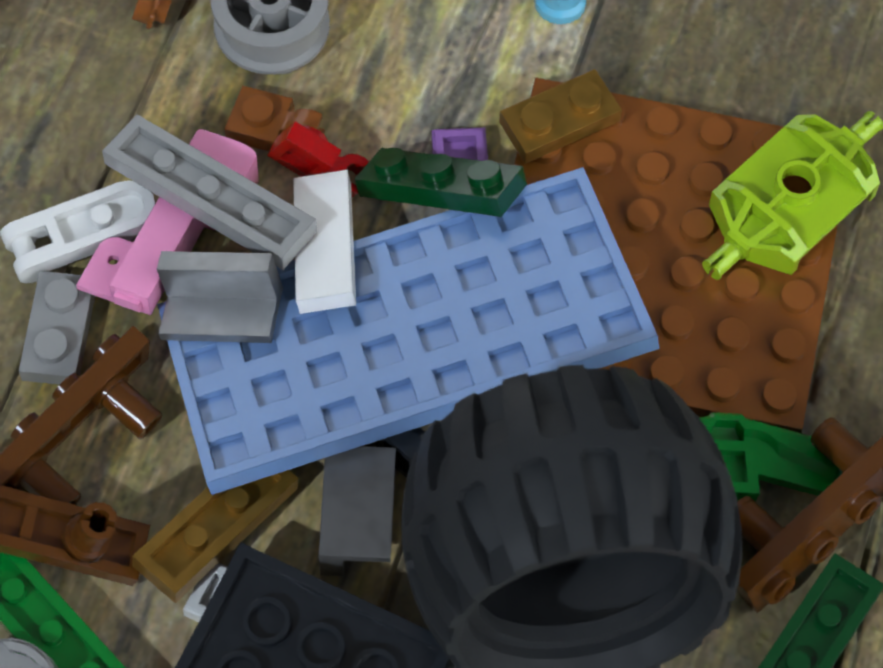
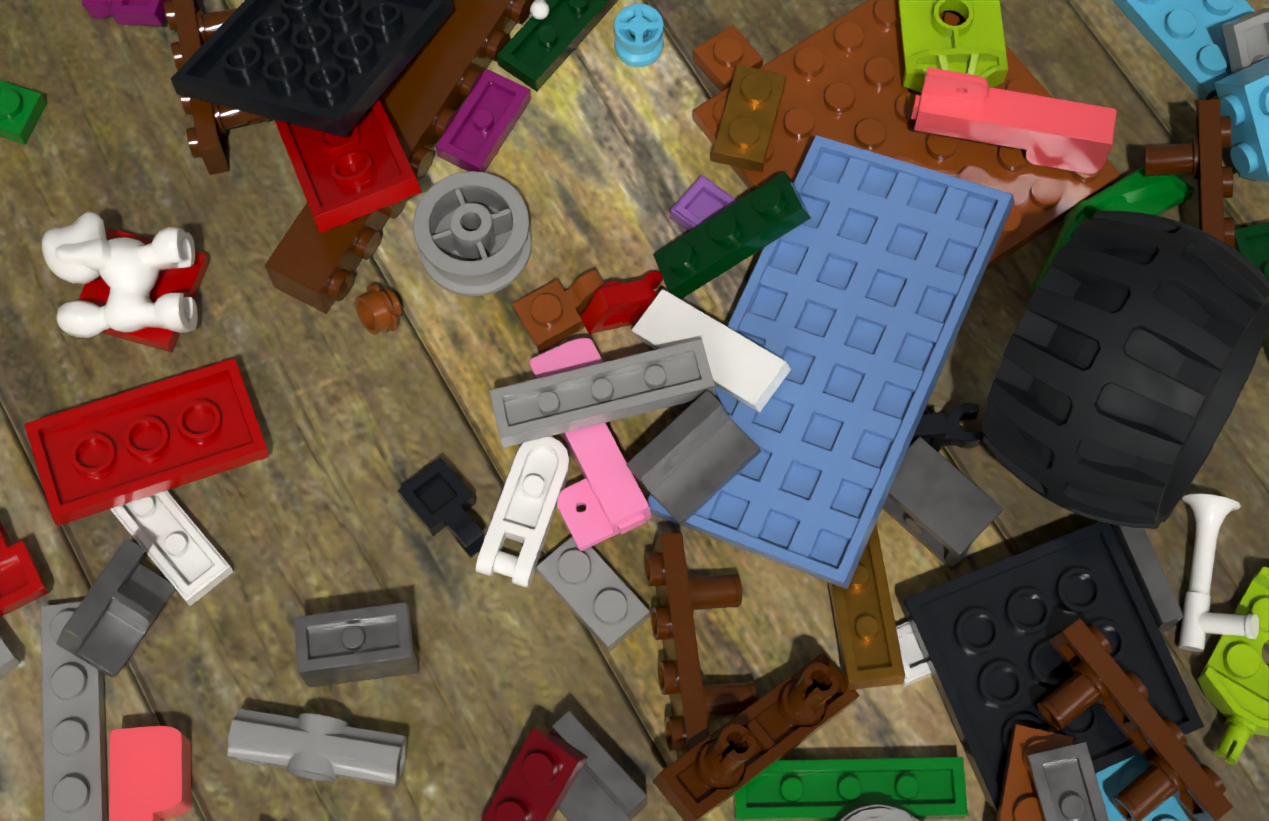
camera: 45 degrees left, 5 degrees up
(30, 166) = (441, 502): none -> black plate
(614, 63) = (722, 54): none -> dark orange plate
(763, 325) = (1050, 129): none -> coral piece

